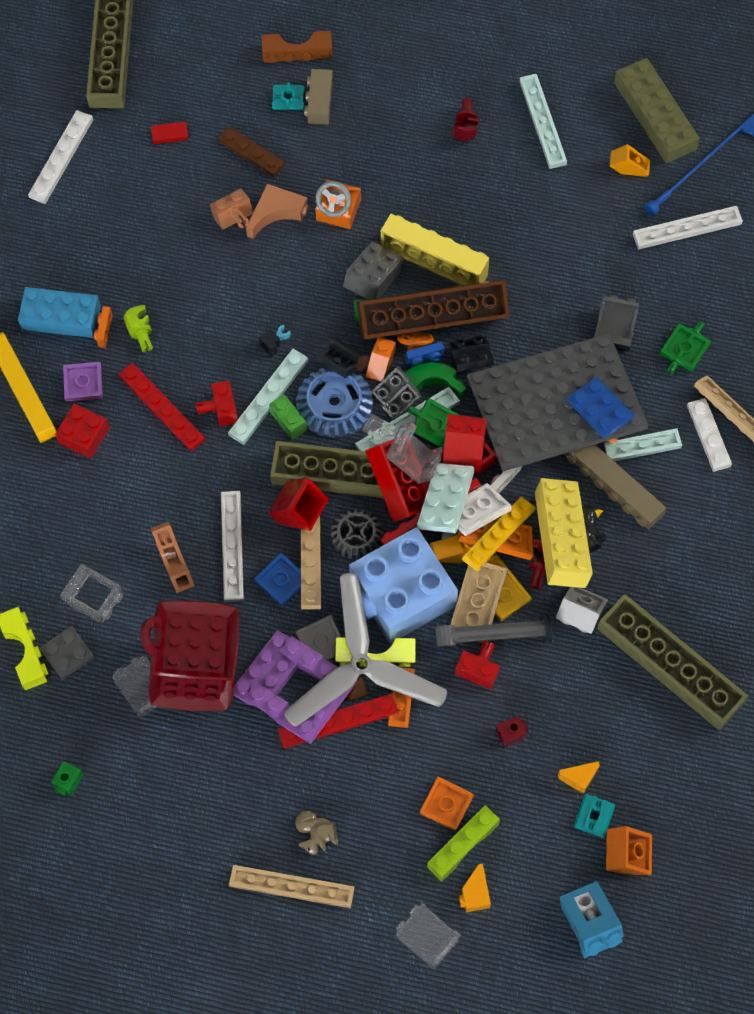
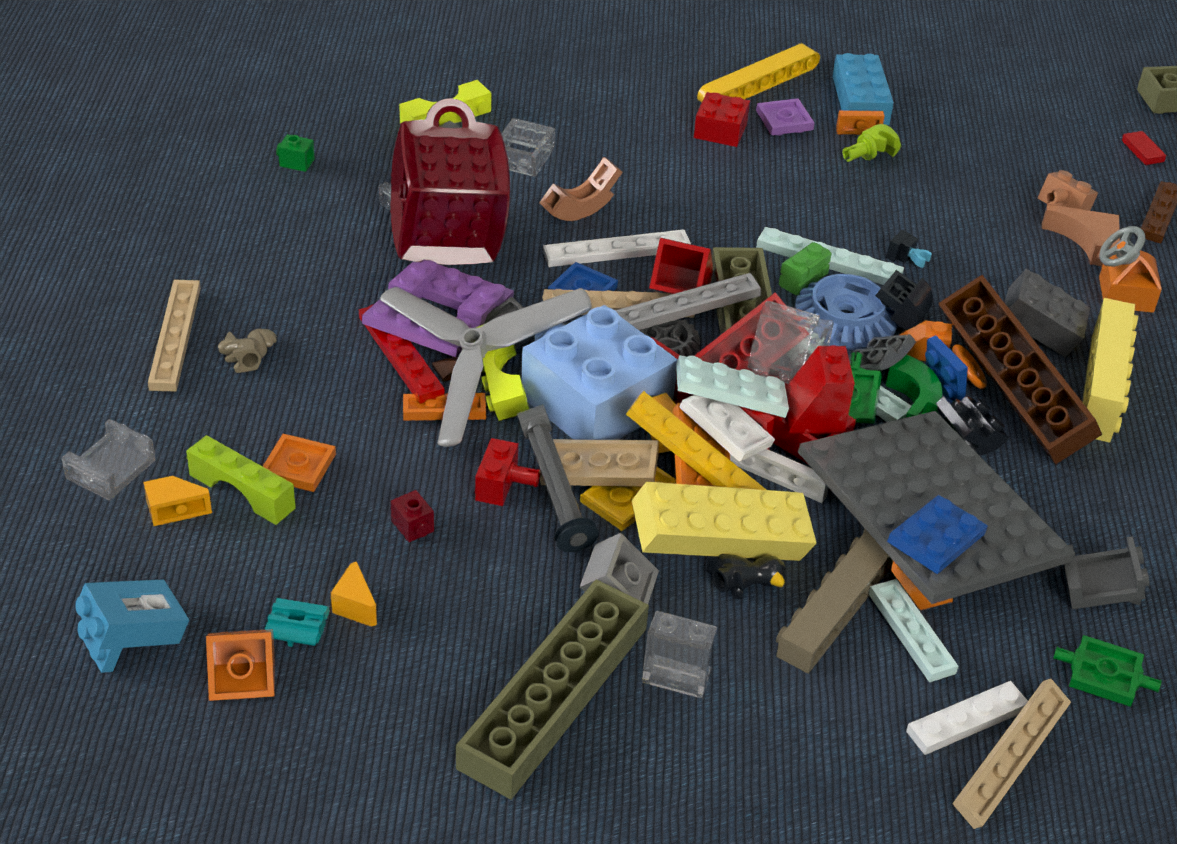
camera: 75 degrees right, 25 degrees down
(60, 157) = (1062, 77): white plate -> none
(161, 407) = (778, 178): red plate -> none
(221, 403) = (801, 215): red brick -> none
(339, 510) = (691, 302): none -> light grey plate
(663, 583) = (678, 654): none -> clear panel

